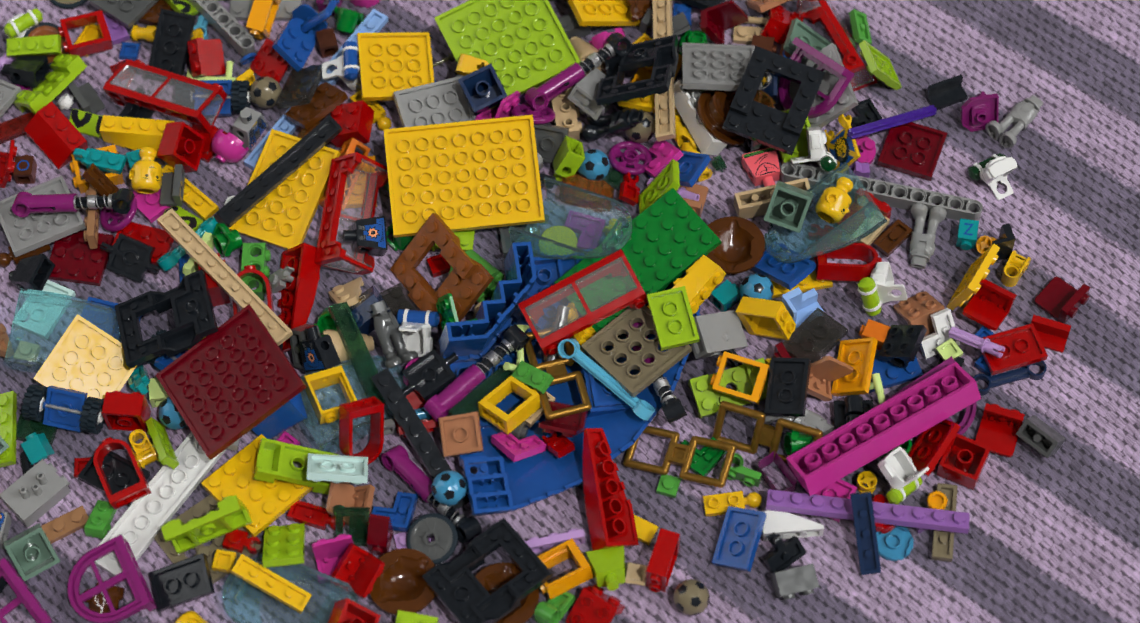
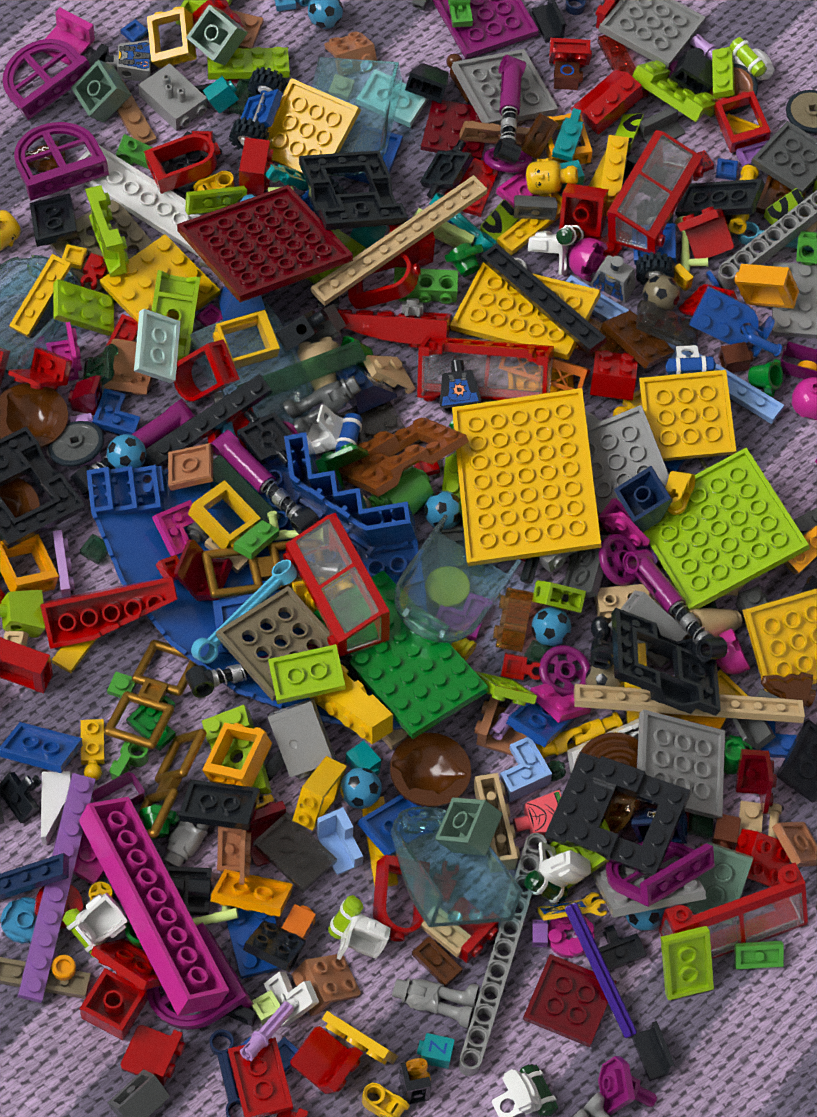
camera: 85 degrees right, 0 degrees up
(65, 102) = (654, 108): white plate -> none
(215, 167) = (557, 243): none -> white piece
(488, 244) = (443, 503): none -> dark azure piece
(536, 517) = (94, 549): none -> clear green plate
(725, 174) = (530, 772): none -> light blue panel
(835, 201) = (474, 880): yellow piece -> none

